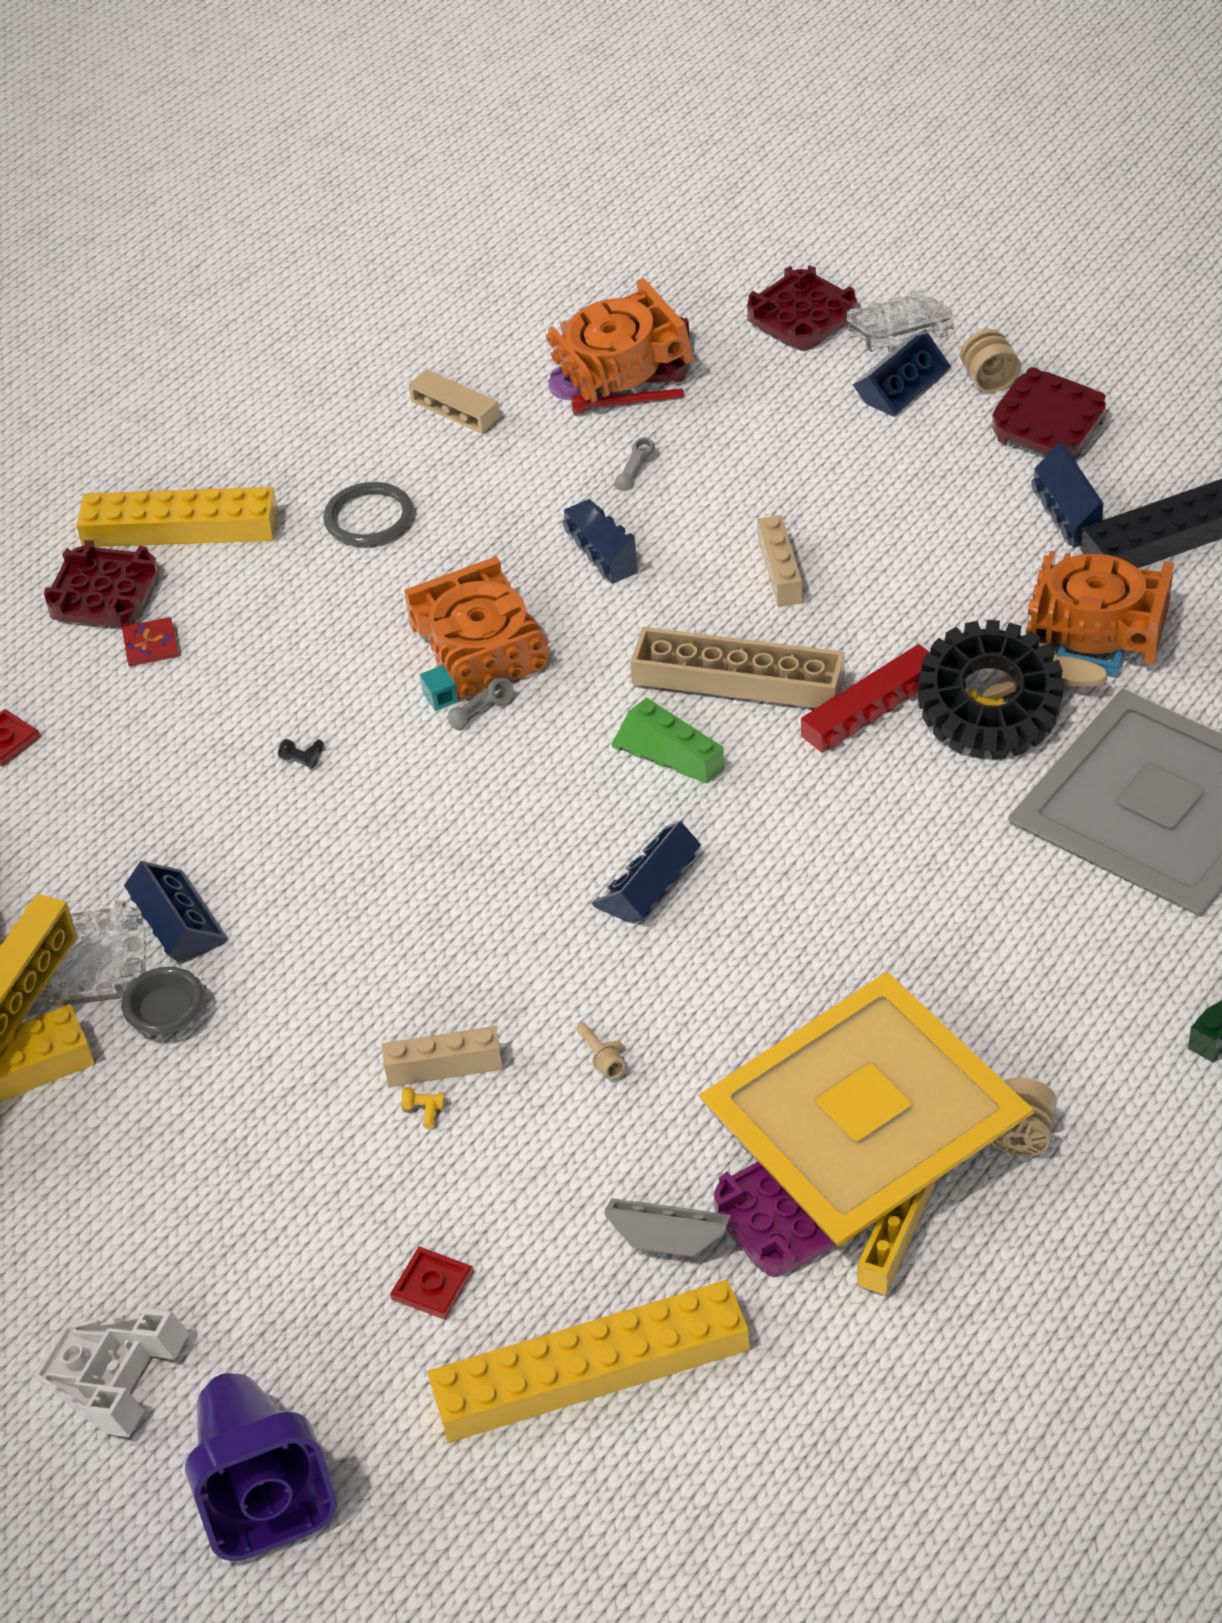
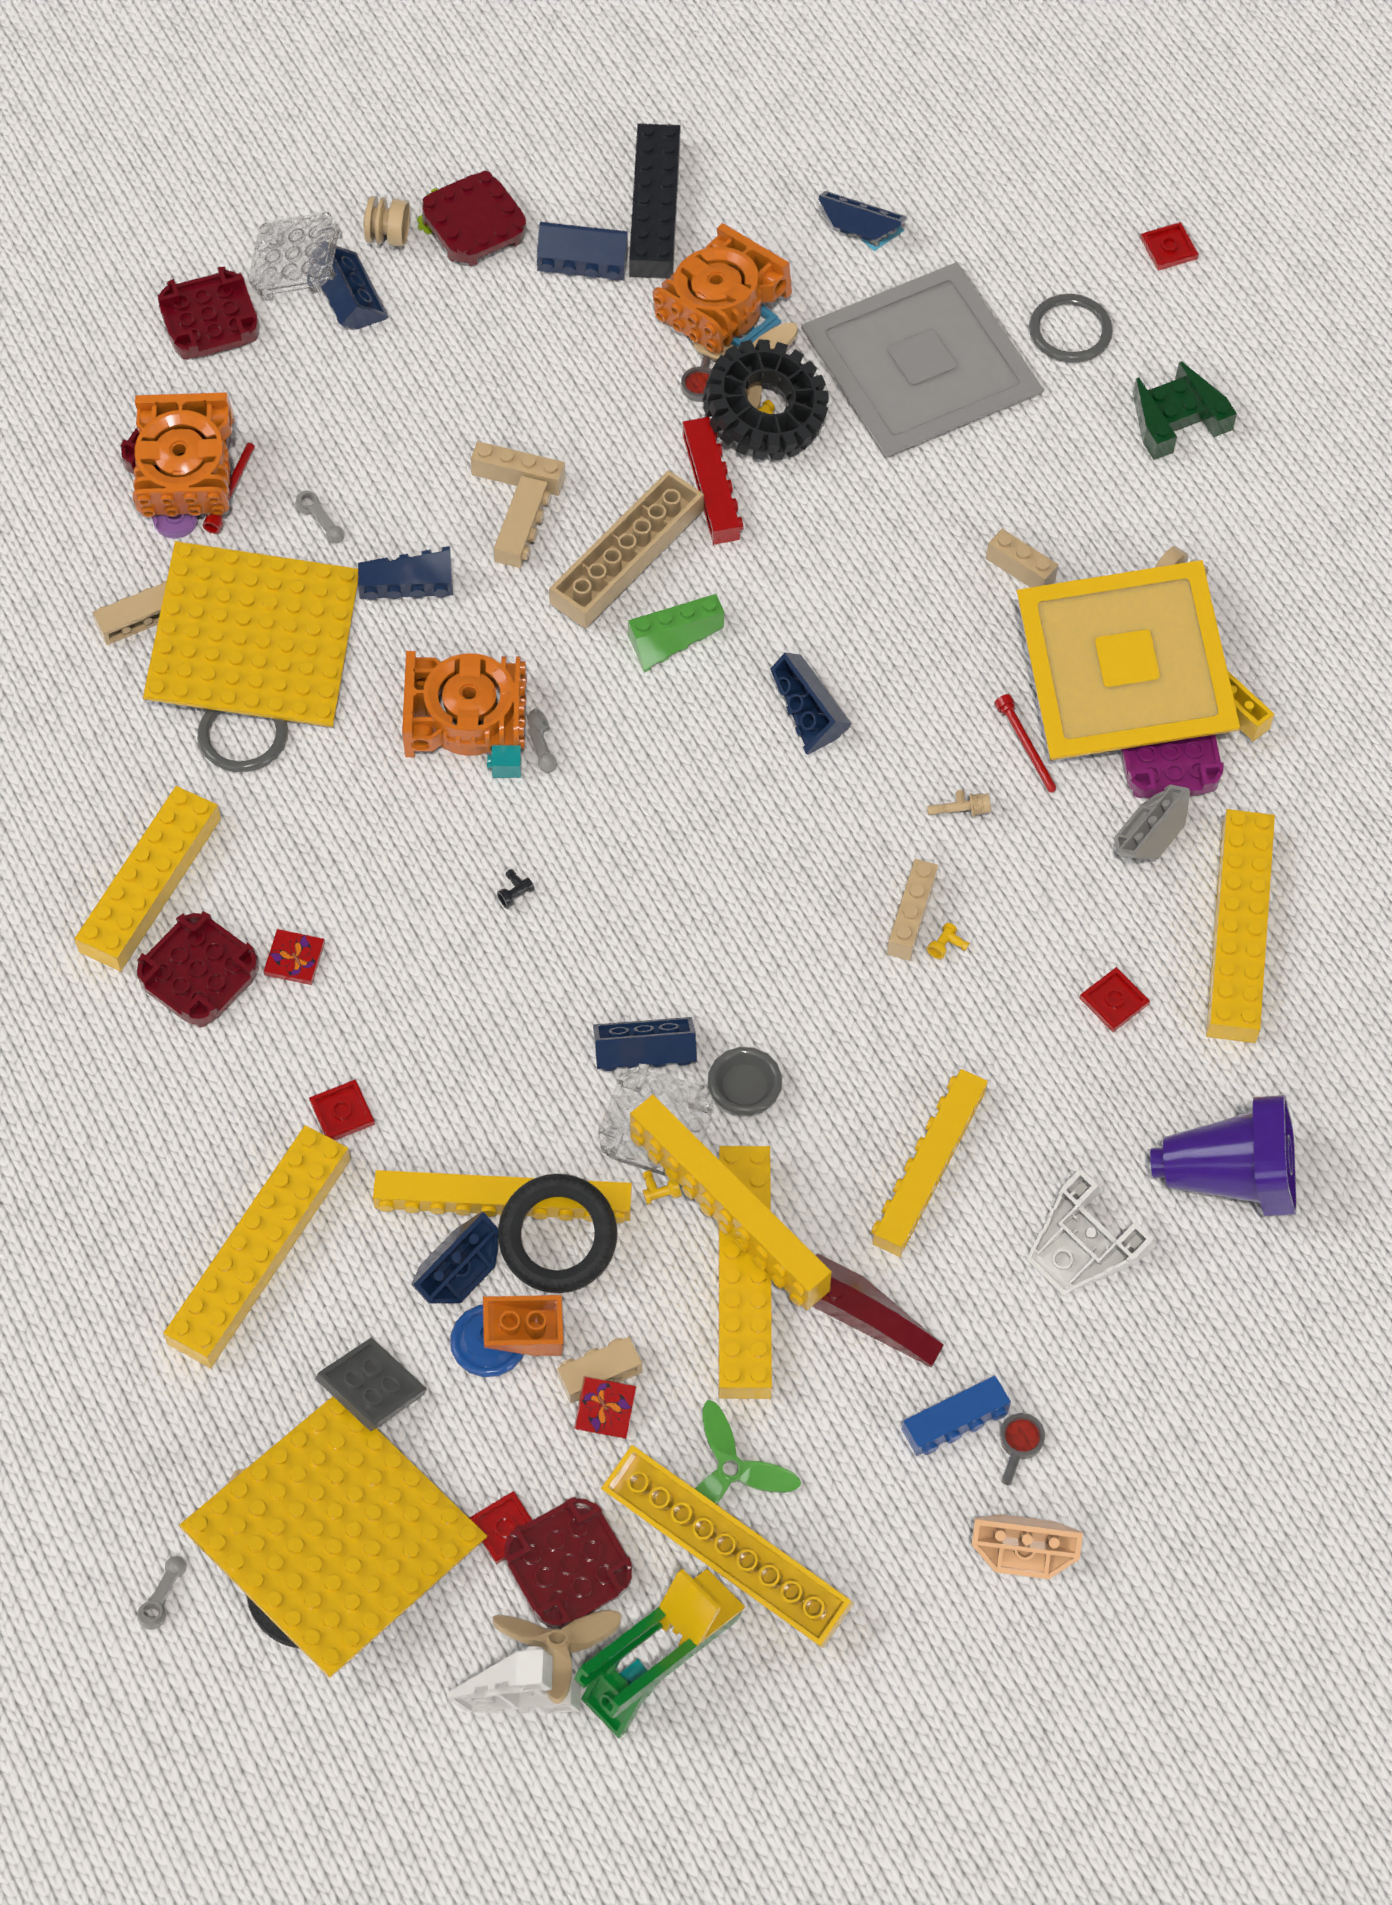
camera: 70 degrees left, 15 degrees up
(141, 1191) = (929, 1163): none -> yellow brick
(471, 473) = (252, 634): none -> yellow baseplate
(720, 588) = (521, 522): none -> tan brick
(753, 1039) = (1006, 705): none -> red piece
(949, 977) = (1021, 560): none -> tan brick

